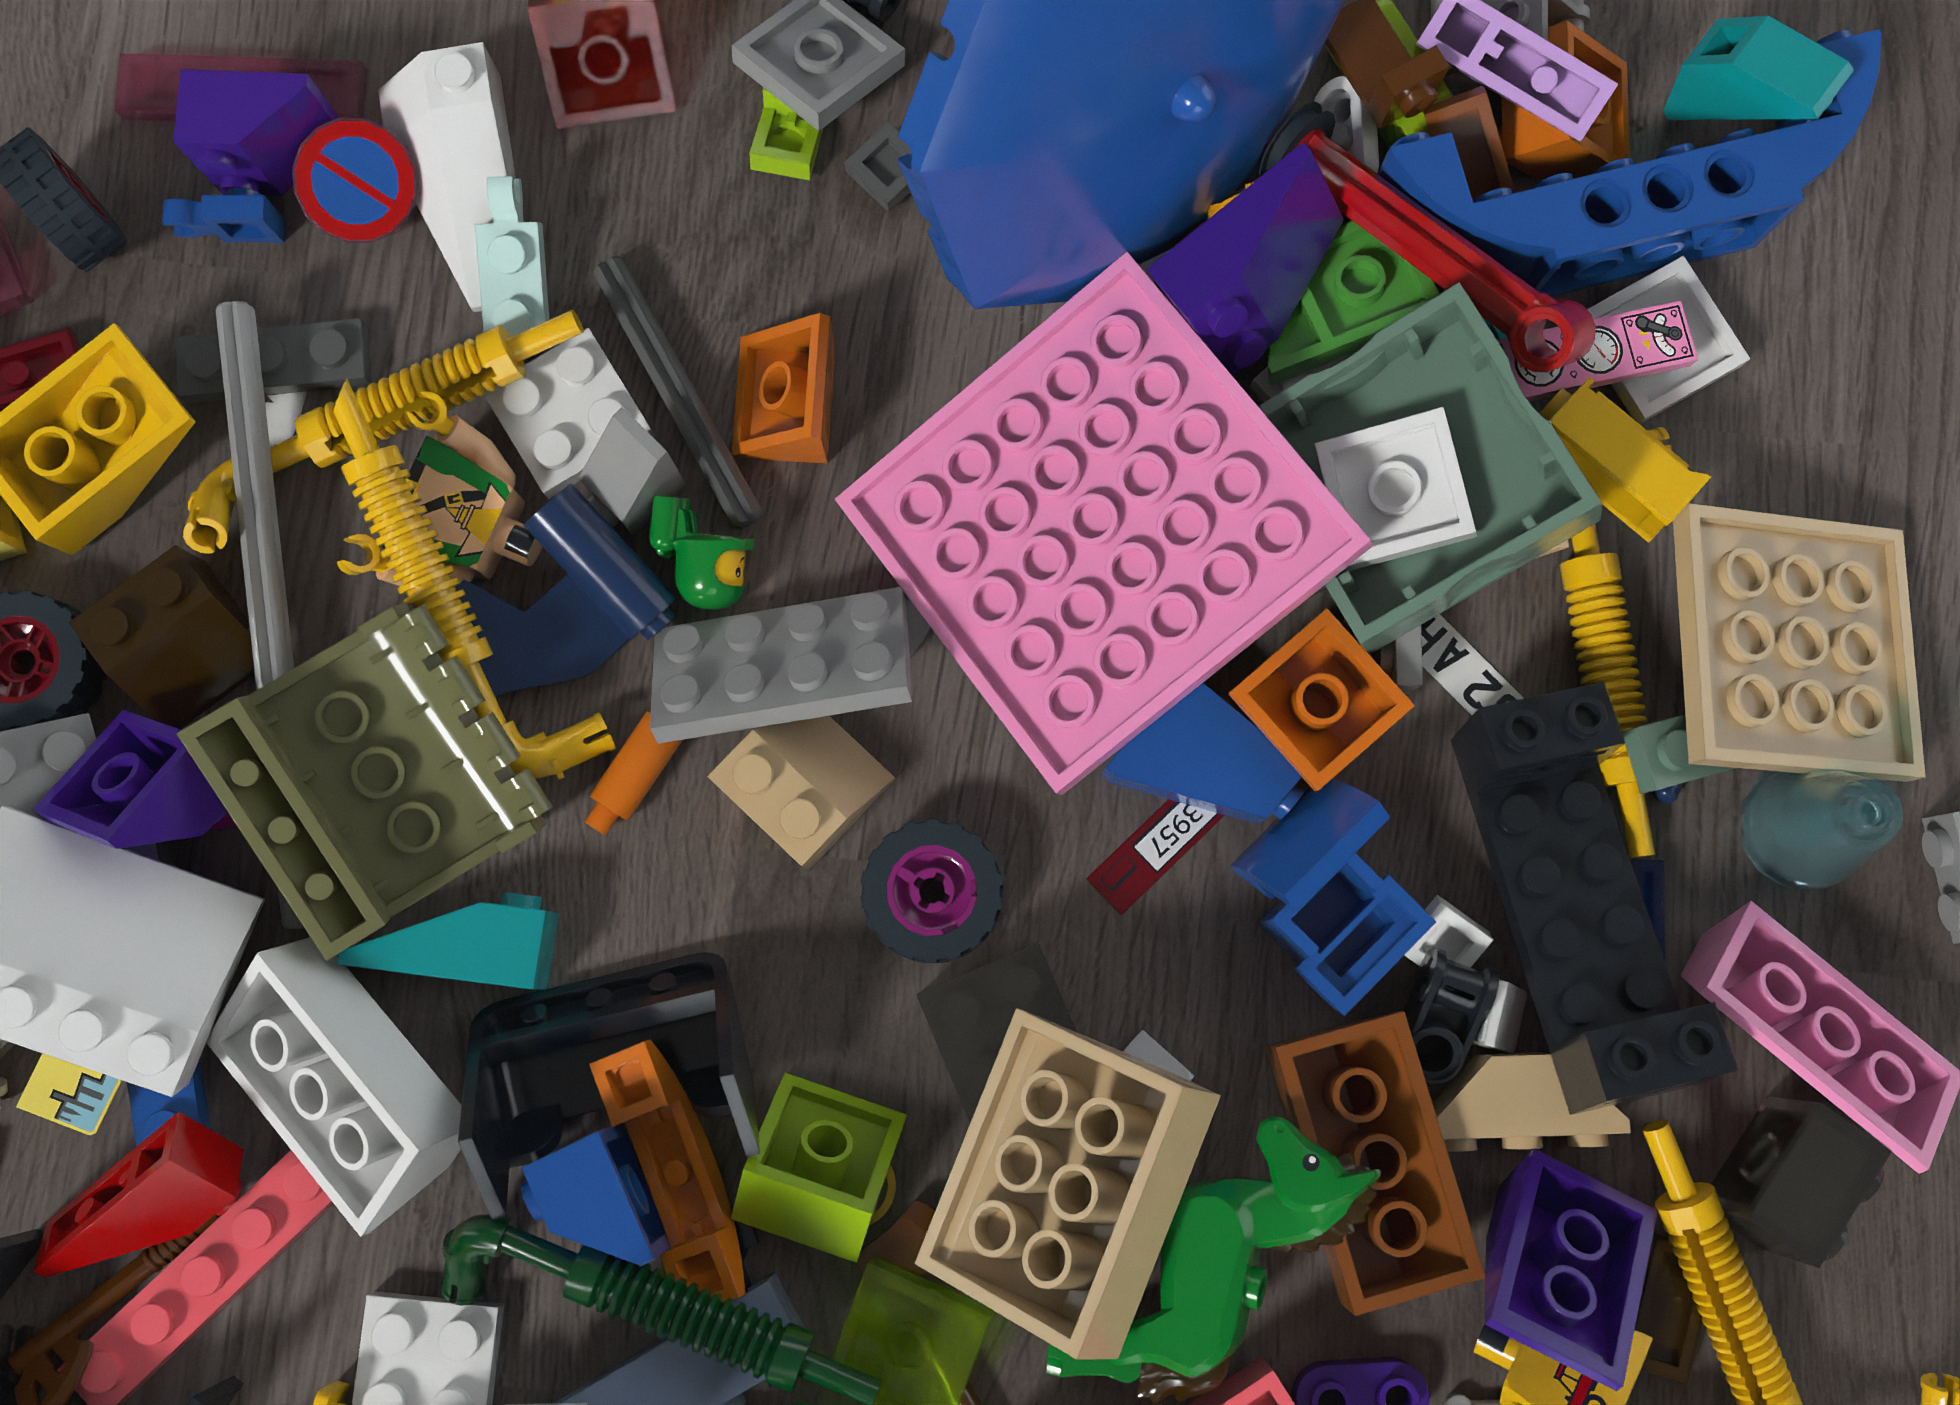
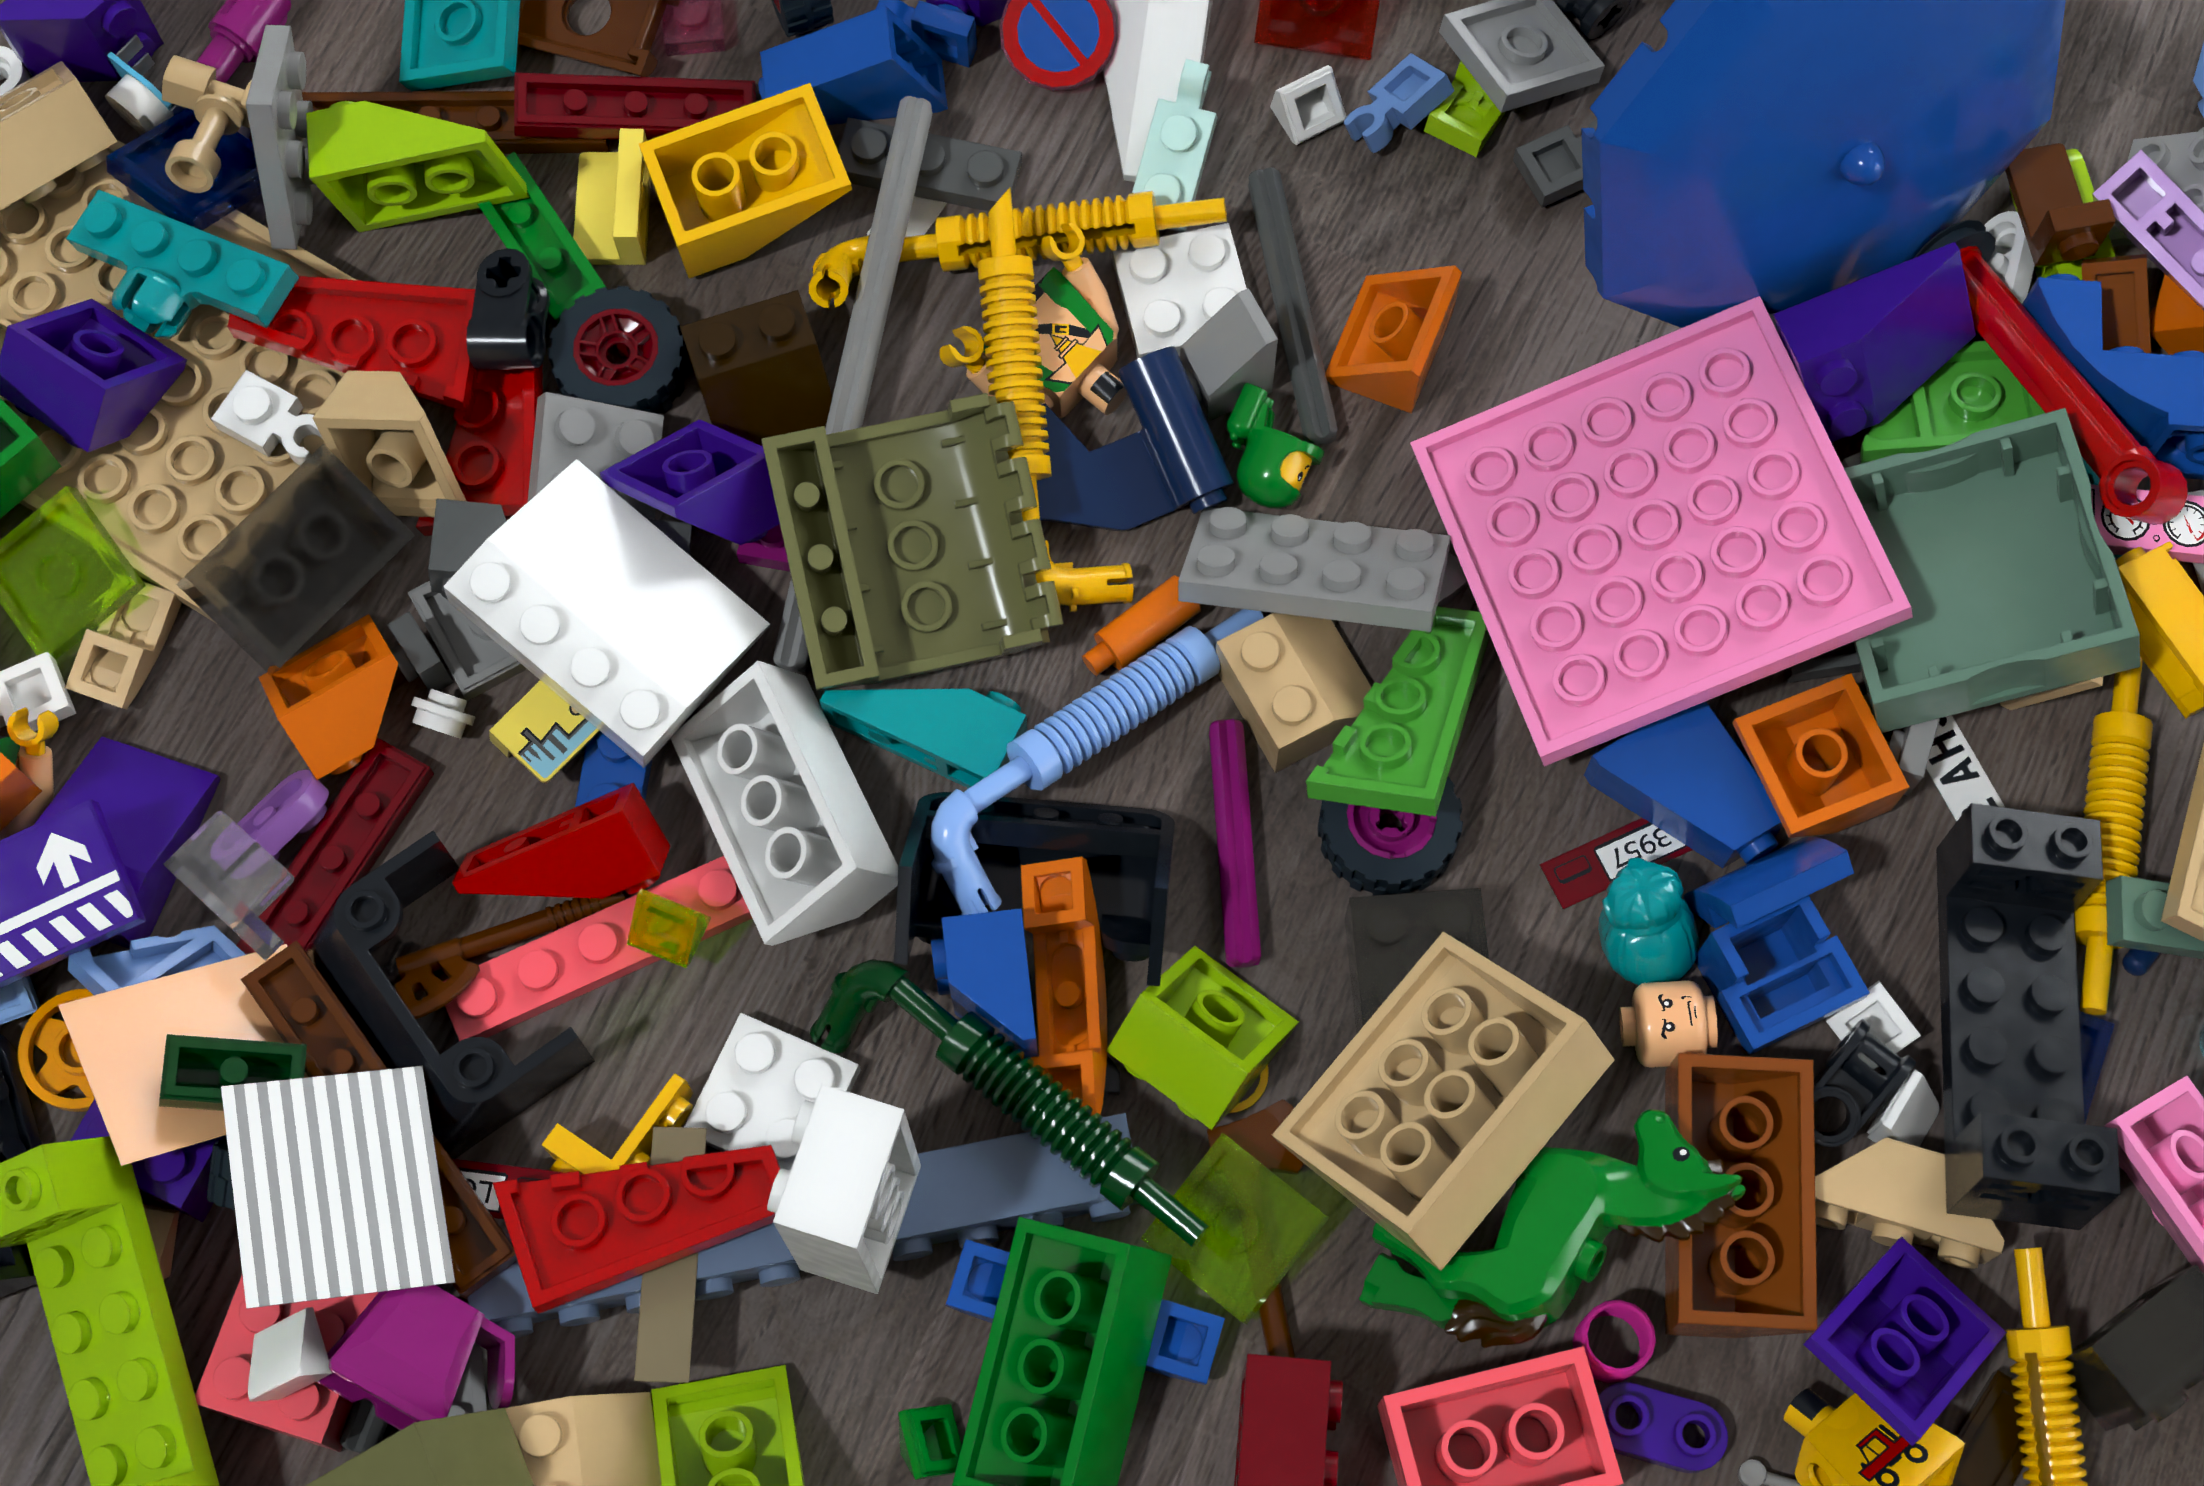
camera: 20 degrees right, 10 degrees down
(166, 286) = (857, 68): none -> blue slope
(262, 1242) = (666, 928): none -> clear neon green slope
(593, 920) = (1067, 739): none -> light blue piece
(630, 179) = (1309, 105): none -> white slope
(717, 144) = (1399, 98): none -> medium blue plate
(791, 959) = (1234, 843): none -> magenta axle
(920, 803) = (1409, 723): none -> bright green wing
(1207, 914) = (1647, 924): none -> teal hair
(1256, 1006) = (1668, 1021): none -> light nougat head
(1319, 1357) = (1640, 1323): none -> dark pink piece
(1399, 485) = (1956, 580): white plate -> none

